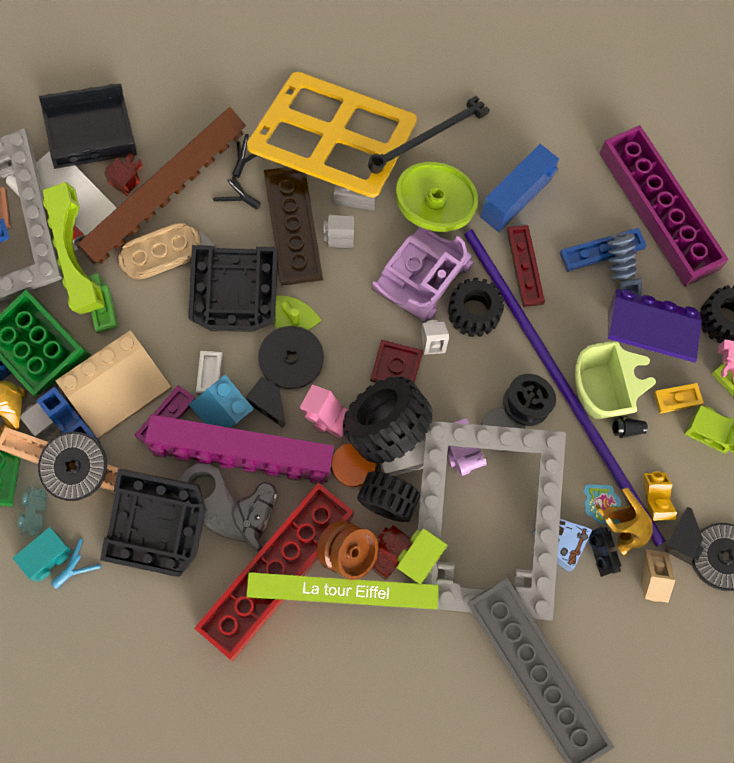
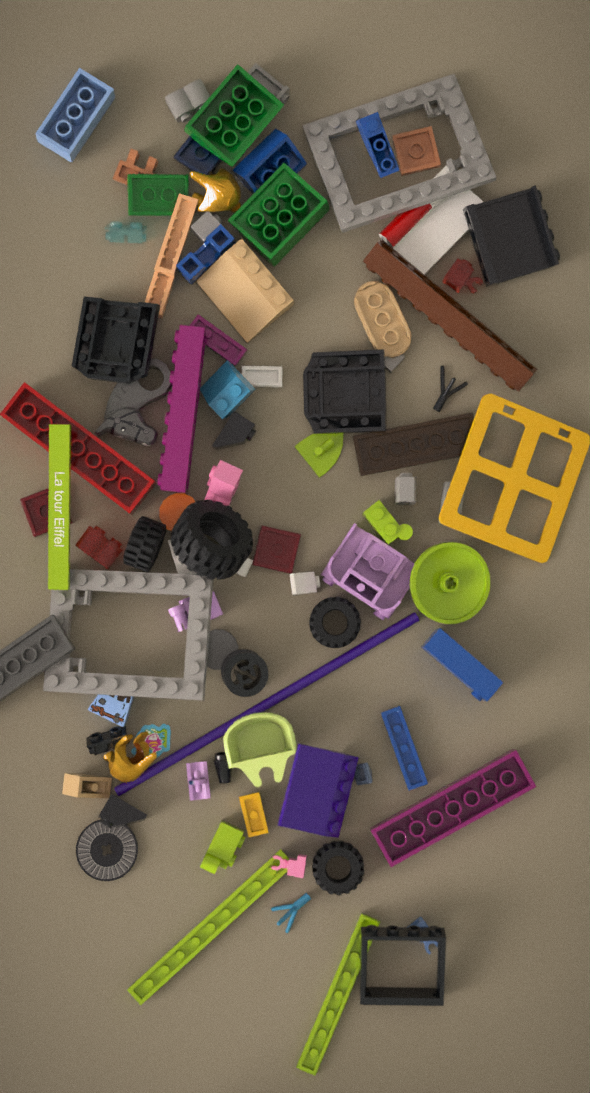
camera: 90 degrees right, 15 degrees up
(42, 555) = (87, 247): teal brick -> none
(56, 473) = (167, 277): piece -> none
(62, 209) = (412, 223): lime arch -> none
(68, 571) = (78, 272): dark azure plant -> none
(104, 318) = (323, 270): bright green hinge -> none
(241, 160) = (485, 390): black plant -> none
(290, 373) = (285, 435): black piece -> none
(344, 620) = (36, 511): none -> dark red tile
(347, 549) = (94, 509): dark orange wheel -> none
(374, 254) = (385, 524): none -> lime hinge
(377, 162) = (556, 621): black hinge -> none
(421, 555) = (91, 574): lime brick -> none
(525, 266) = (383, 671): dark red plate -> none
(623, 256) = (392, 763): sand blue piece -> none
(646, 452) = (198, 780): none -> lavender hips
(658, 495) = (159, 791): yellow slope -> none

